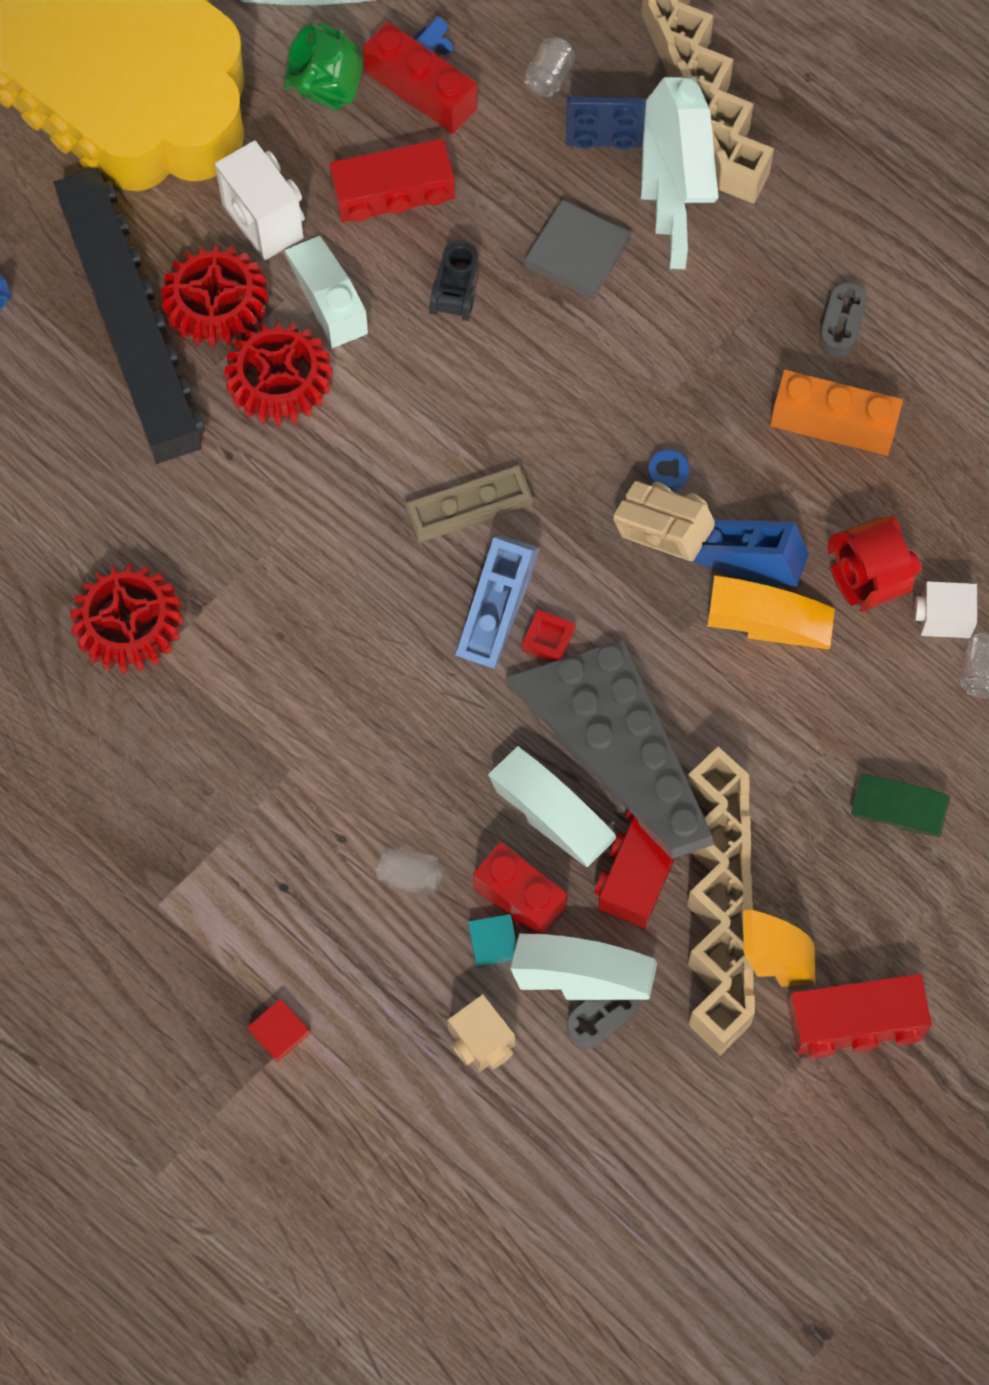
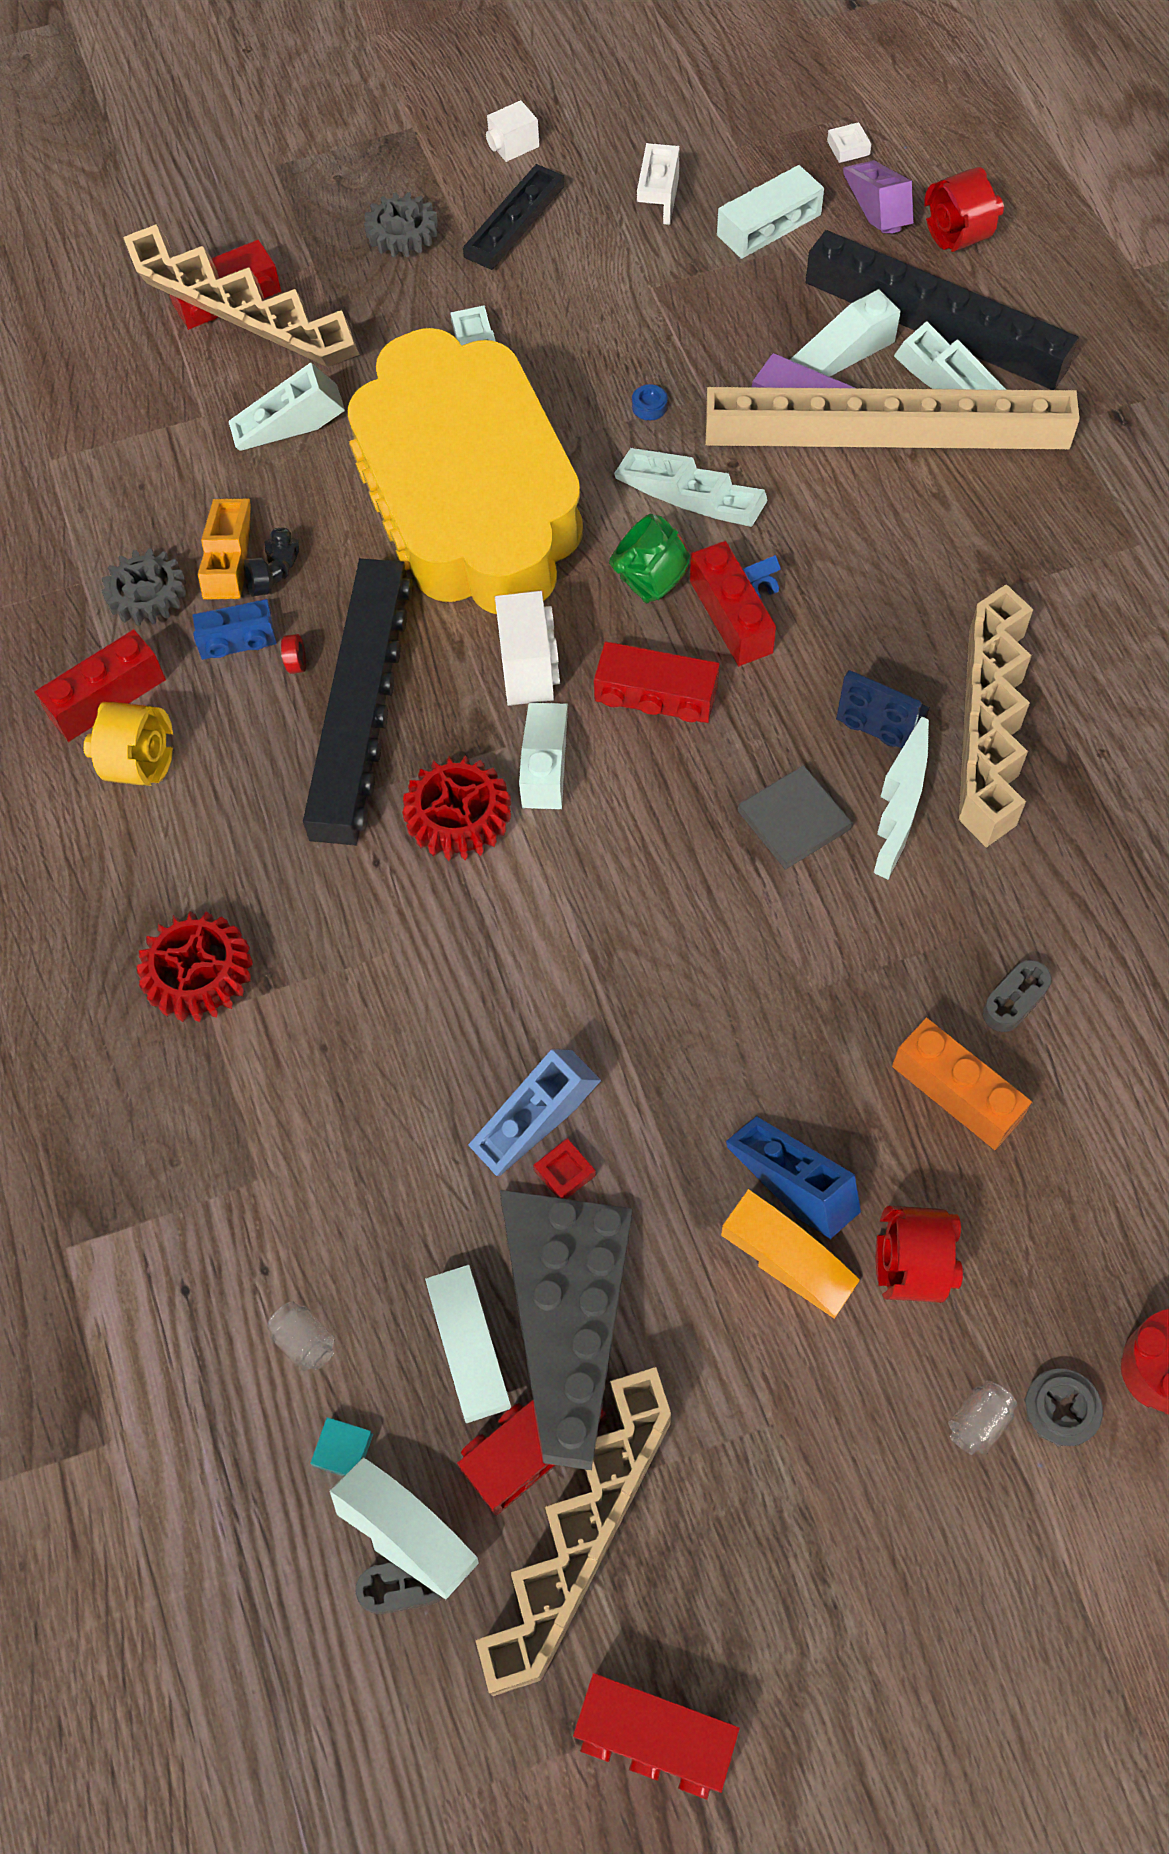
camera: 30 degrees right, 5 degrees down
(39, 299) = (293, 653): none -> red tile
(234, 307) = (446, 728): red gear -> none
(278, 1030) = (93, 1431): red tile -> none
(455, 287) = (659, 803): black piece -> none
(468, 503) = (562, 1006): dark tan tile -> none
(481, 1035) = (267, 1544): tan brick -> none
(519, 890) = (389, 1413): red brick -> none
(549, 66) = (856, 642): clear brick -> none
(664, 519) = (733, 1110): tan brick -> none
(669, 469) = (767, 1063): blue tile -> none
(684, 136) = (944, 752): light aqua slope -> none
(778, 949) = (599, 1619): light orange slope -> none
(901, 805) = (819, 1524): dark green slope -> none
(947, 609) = (973, 1339): white brick -> none

